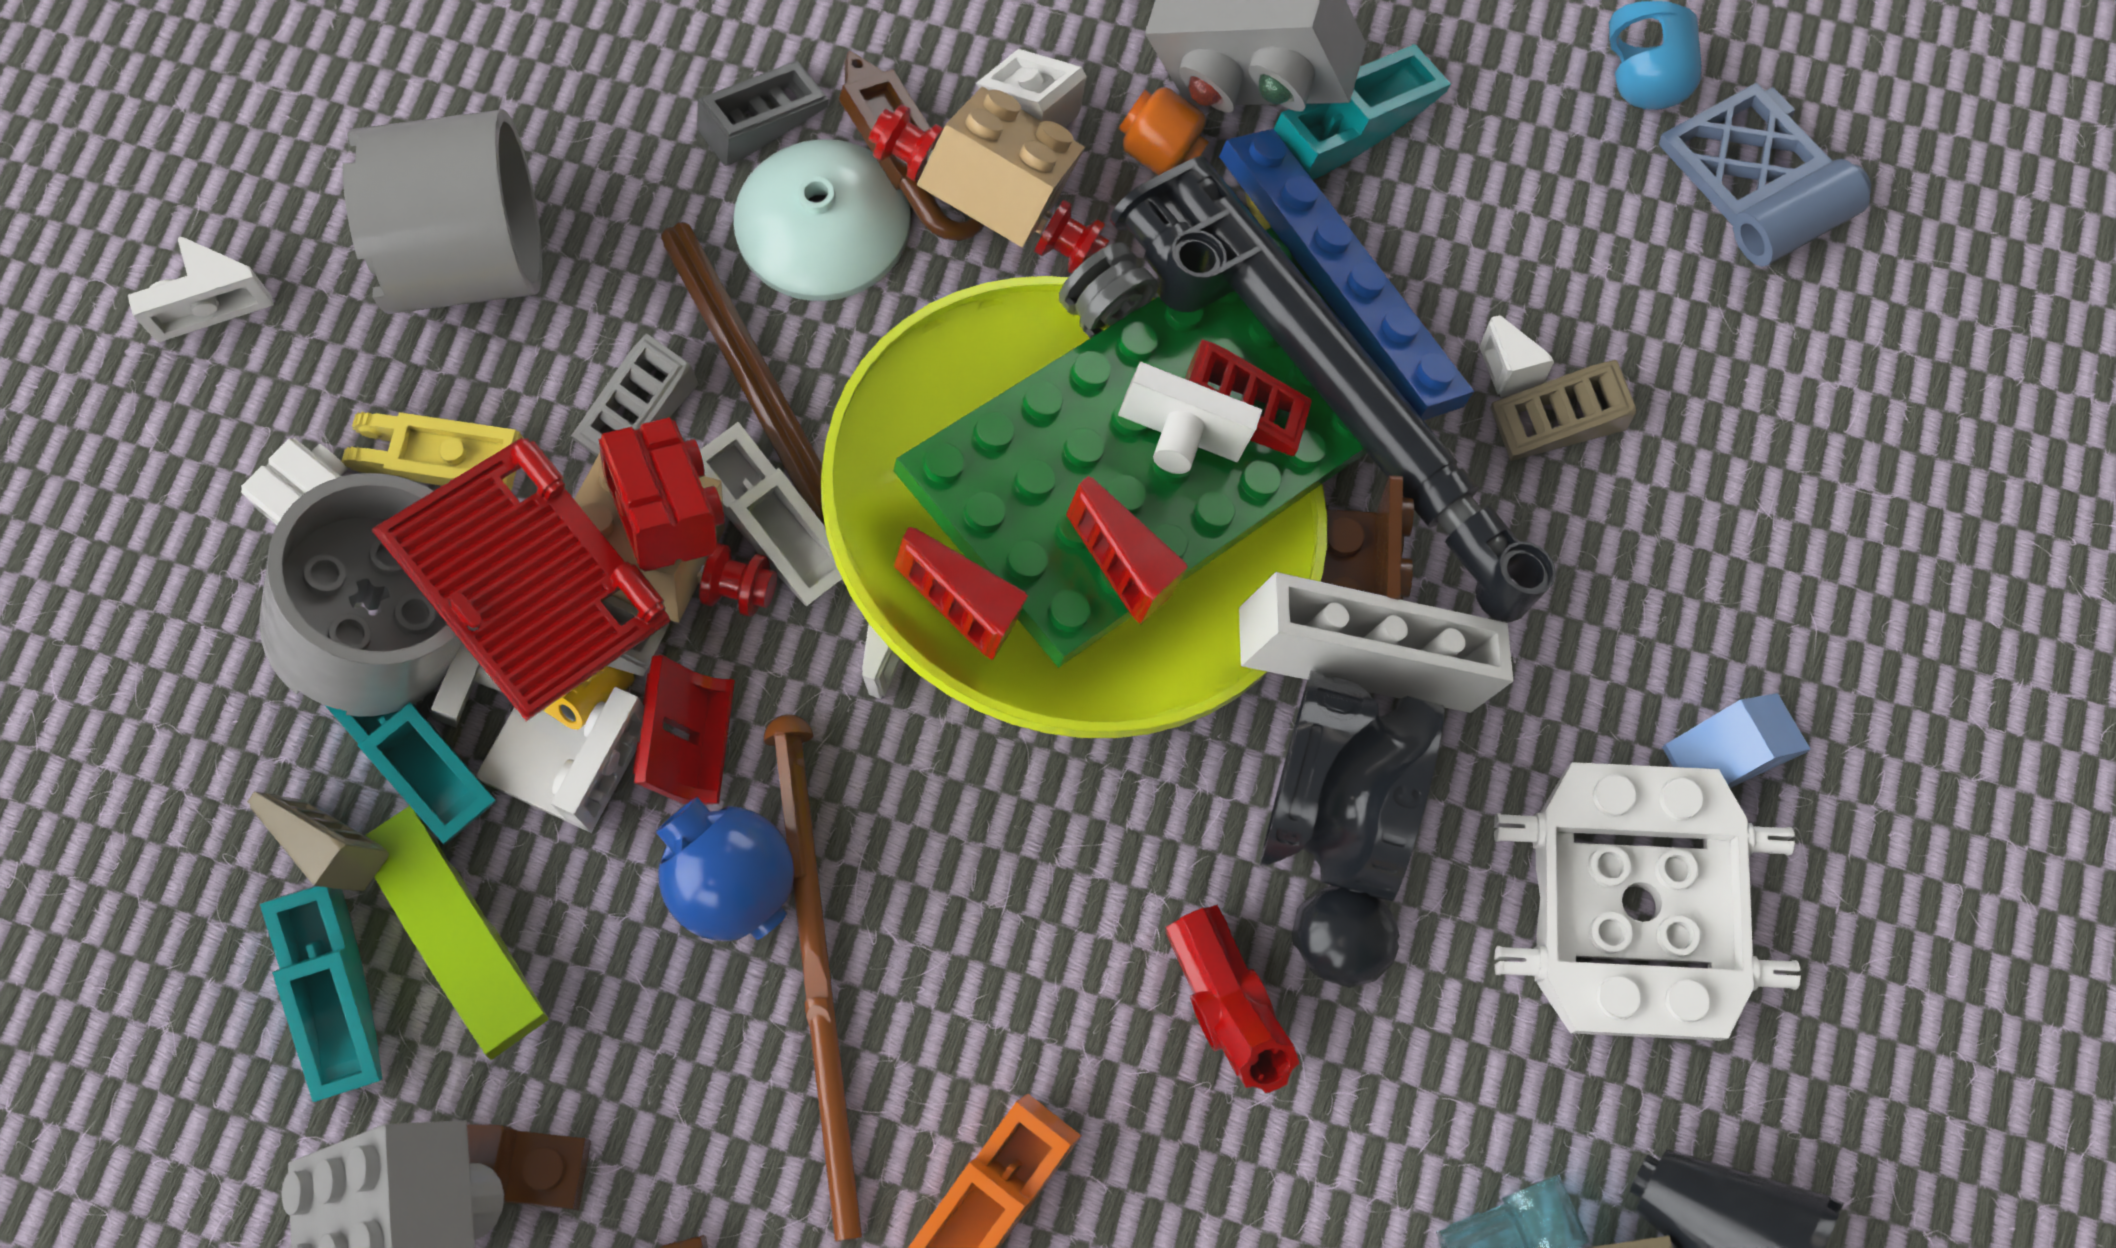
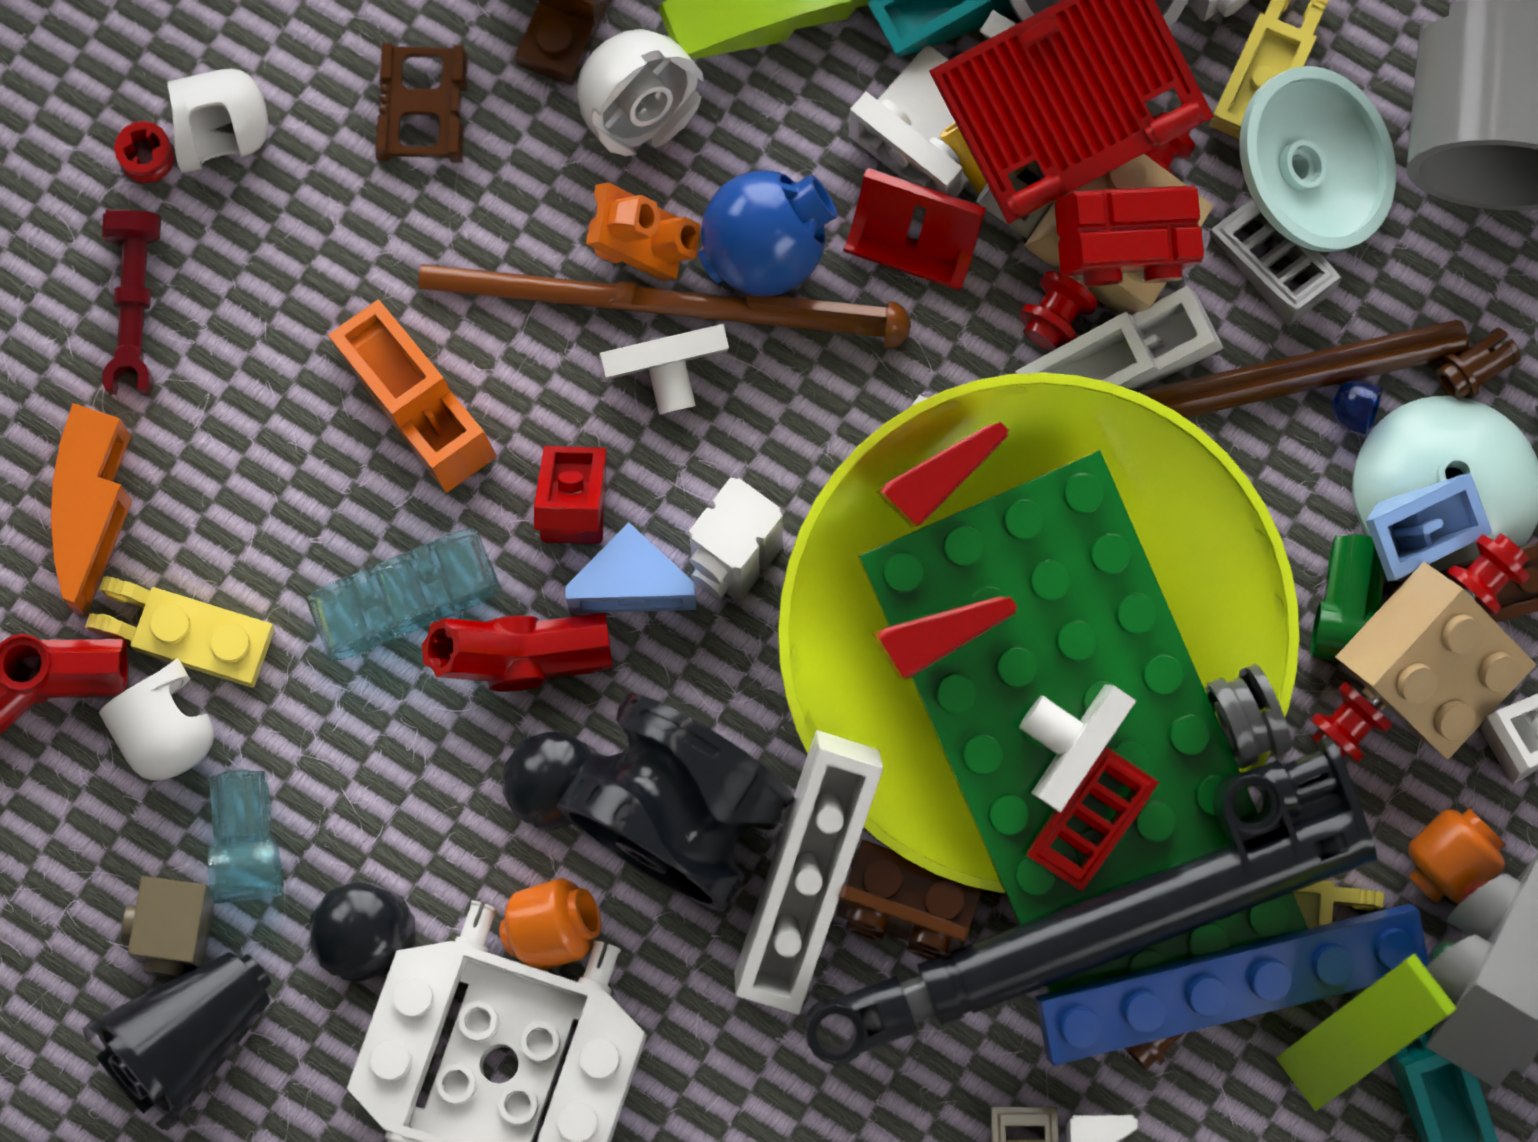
camera: 105 degrees right, 5 degrees up
(530, 378) = (1317, 159): none -> light aqua dish
(586, 1058) = (638, 90): none -> white cylinder
(710, 220) = (1465, 373): none -> reddish brown pin
(752, 1005) = (640, 233): none -> orange hips
(765, 301) = (1357, 405): none -> clear blue hinge
(875, 203) = (1426, 524): none -> light blue slope
(882, 943) = (666, 363): none -> white tile
(953, 262) = (1350, 594): none -> green piece
(1050, 998) = (571, 495): none -> red slope
(1062, 810) = (735, 540): none -> white brick
(1119, 914) = (630, 578): none -> light blue slope
(1207, 1144) = (403, 594): none -> clear light blue beam
(1356, 145) = (1366, 1032): none -> lime slope
(1494, 890) = (550, 924): none -> orange head
(1560, 1082) = (360, 930): none -> black hair

